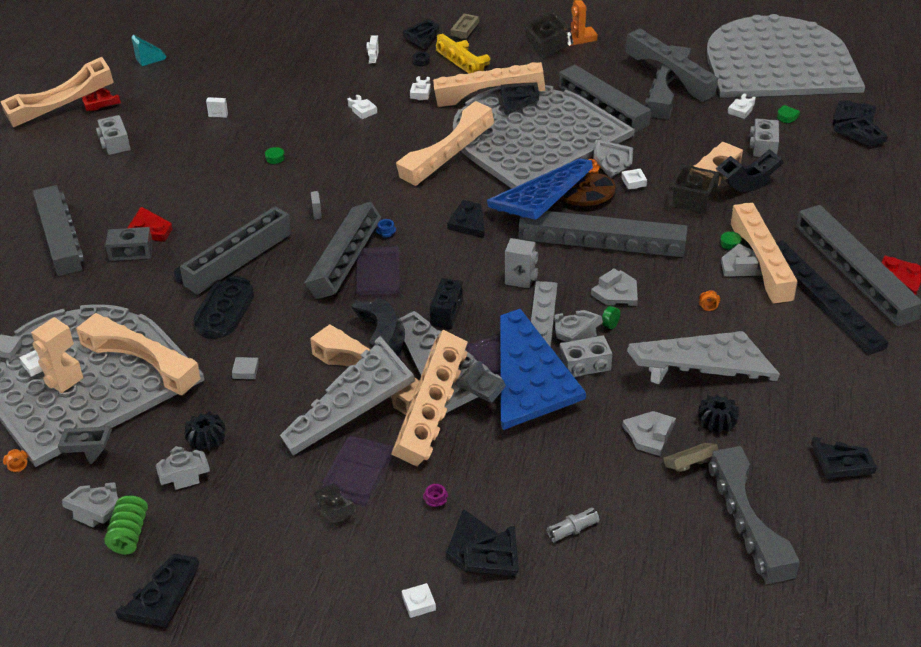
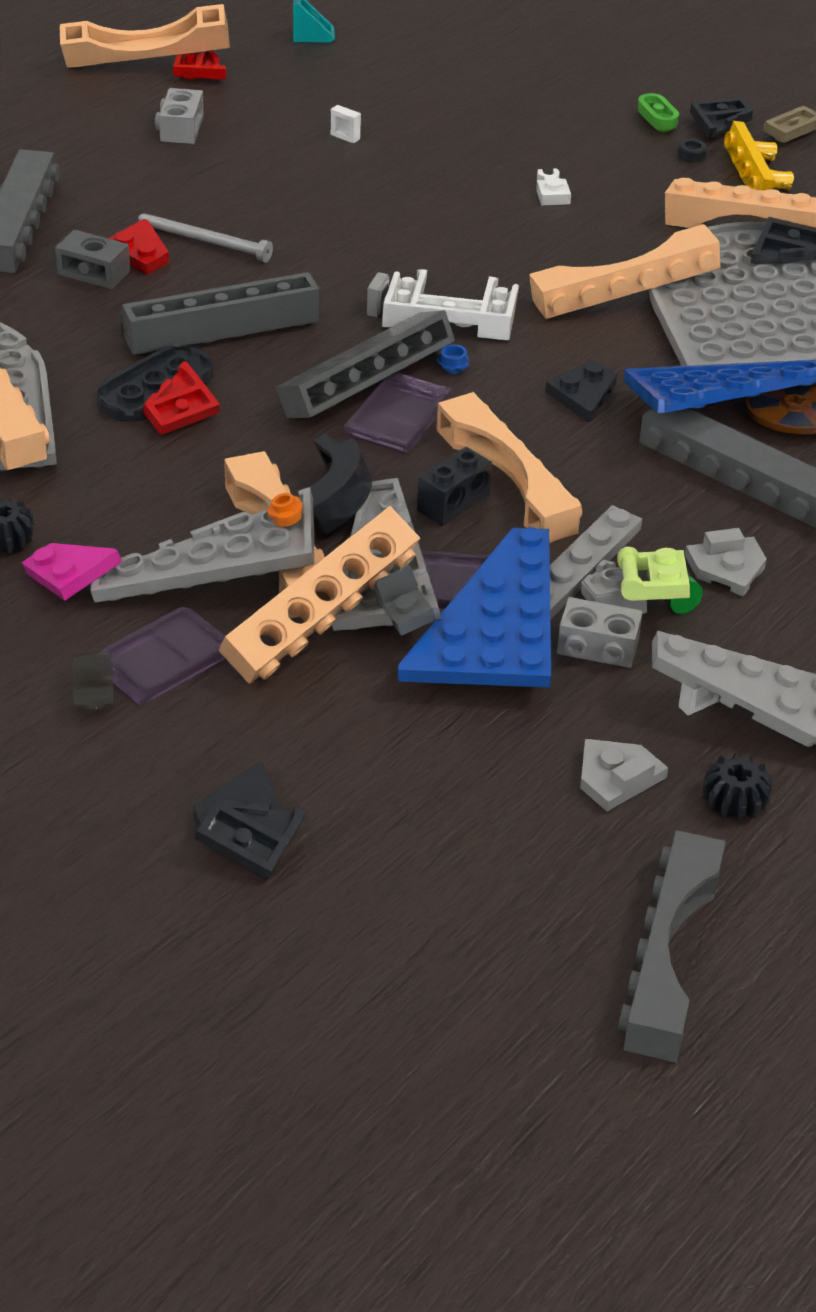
camera: 25 degrees right, 0 degrees up
(226, 201) = (262, 250): none -> light grey bar
(245, 368) = (120, 469): light grey tile -> none
(252, 312) = (180, 401): none -> red wing
(266, 440) = (68, 567): none -> dark pink wing
(274, 155) = (377, 212): green tile -> none
(373, 49) = (628, 114): white plate -> none
(379, 355) = (285, 509): none -> orange plate
(386, 192) = (492, 315): none -> white wedge
(389, 42) = (658, 112): none -> bright green plate
(418, 600) = (110, 851): white plate -> none
(420, 89) = (652, 191): white plate -> none
(432, 266) = (471, 424): none -> light nougat arch
(435, 495) = (238, 728): magenta plate -> none
(520, 263) = (599, 468): light grey brick -> none
(573, 524) = (399, 846): light grey pin -> none
(597, 306) = (665, 571): none -> yellowish green plate
(682, 460) = (628, 828): dark tan plate -> none

